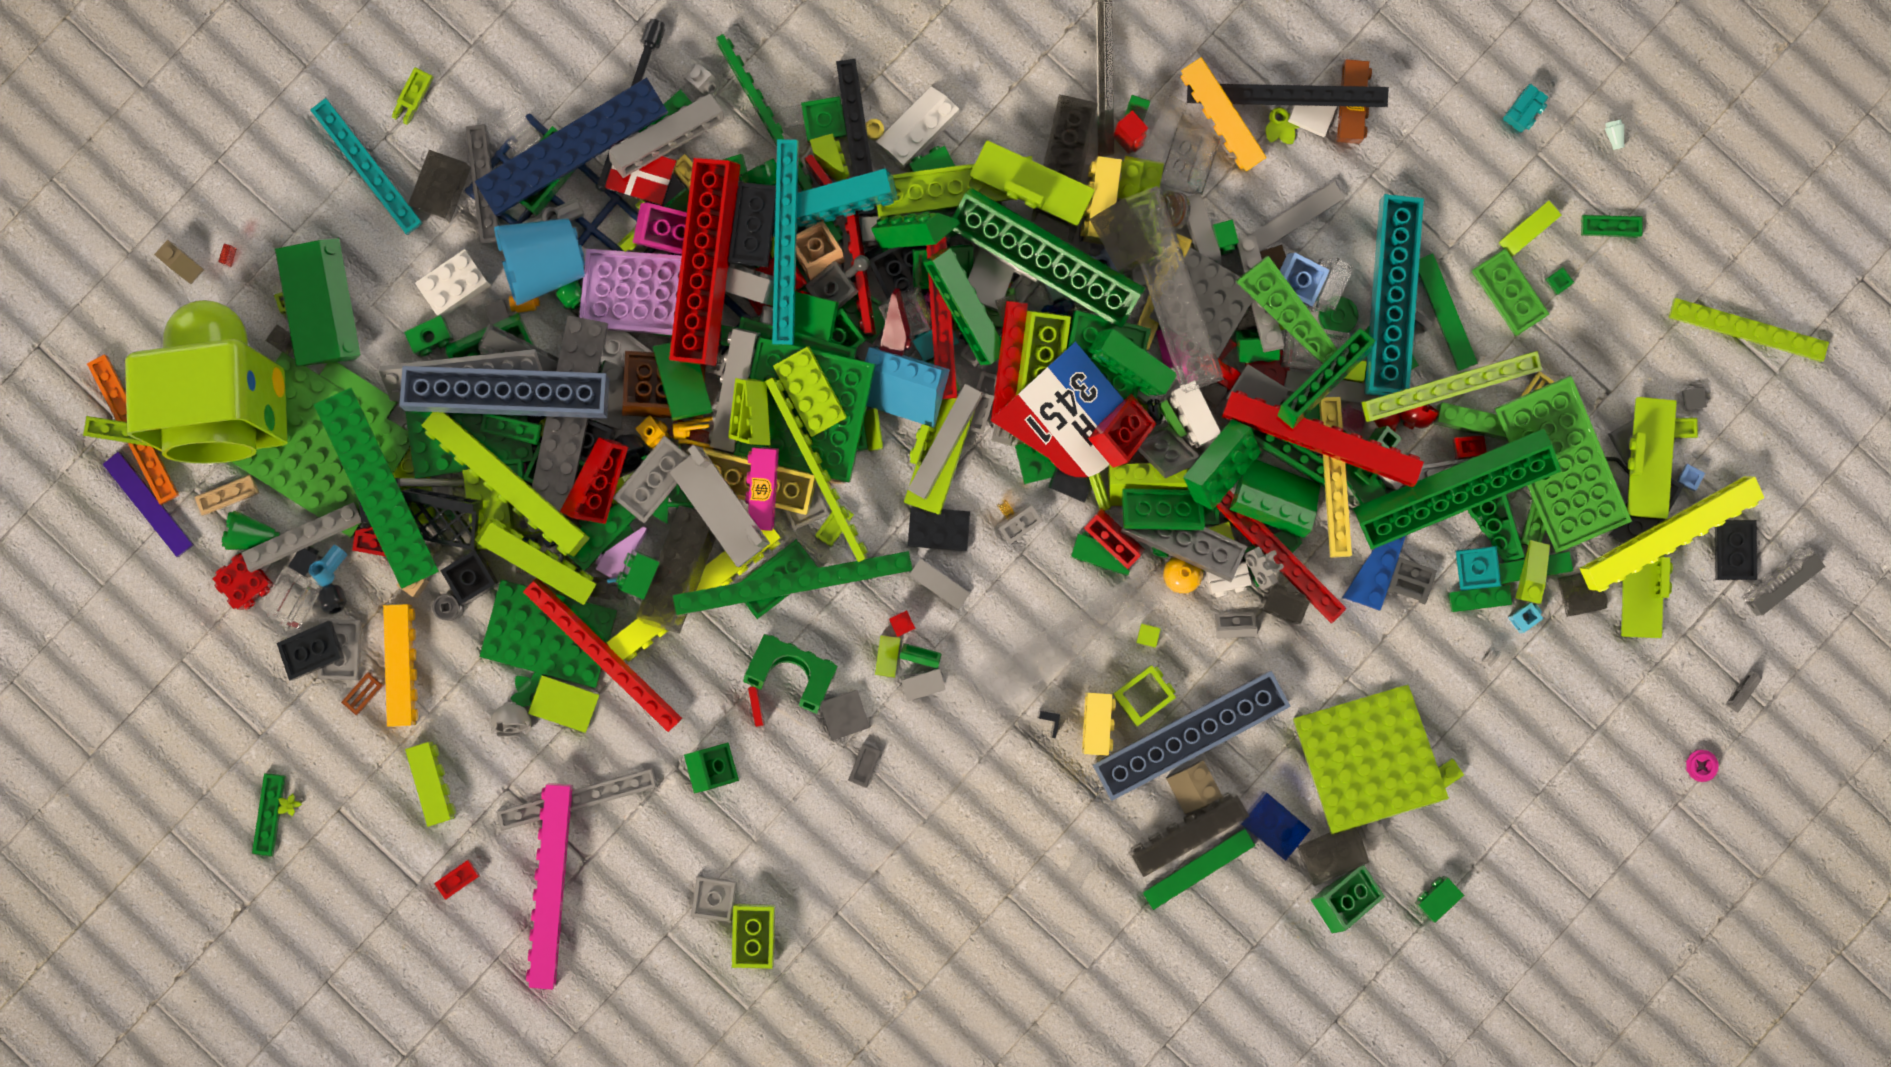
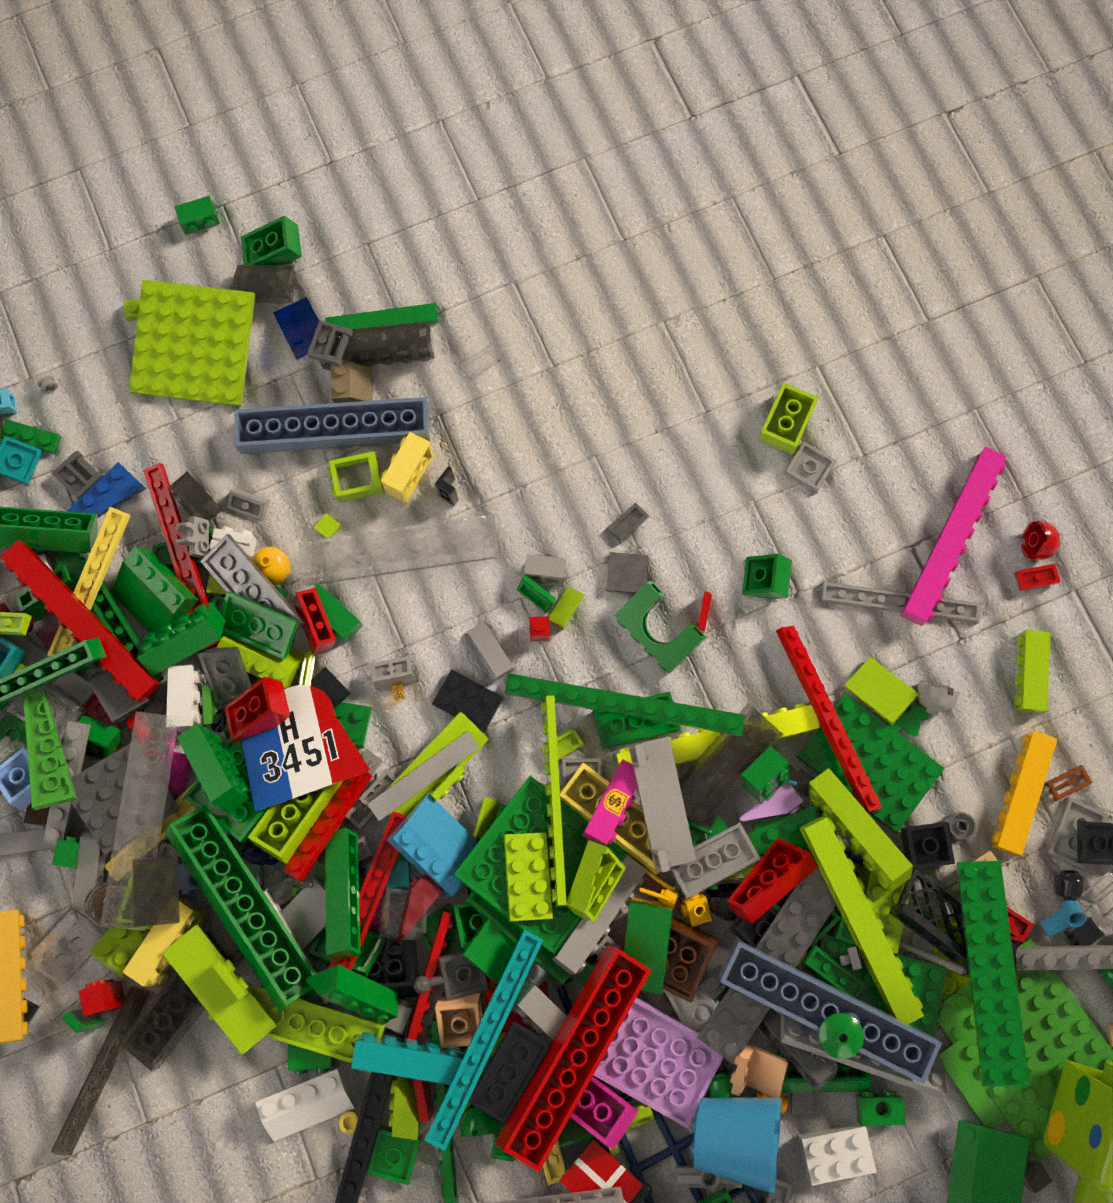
camera: 150 degrees left, 10 degrees down
(465, 915) = (1040, 540): none -> red cylinder
(492, 381) = (840, 1024): none -> green dish
(500, 448) = (853, 957): none -> light grey tile
(544, 320) = (759, 1071): none -> light nougat bracket
(1233, 806) = (324, 340): none -> dark grey plate

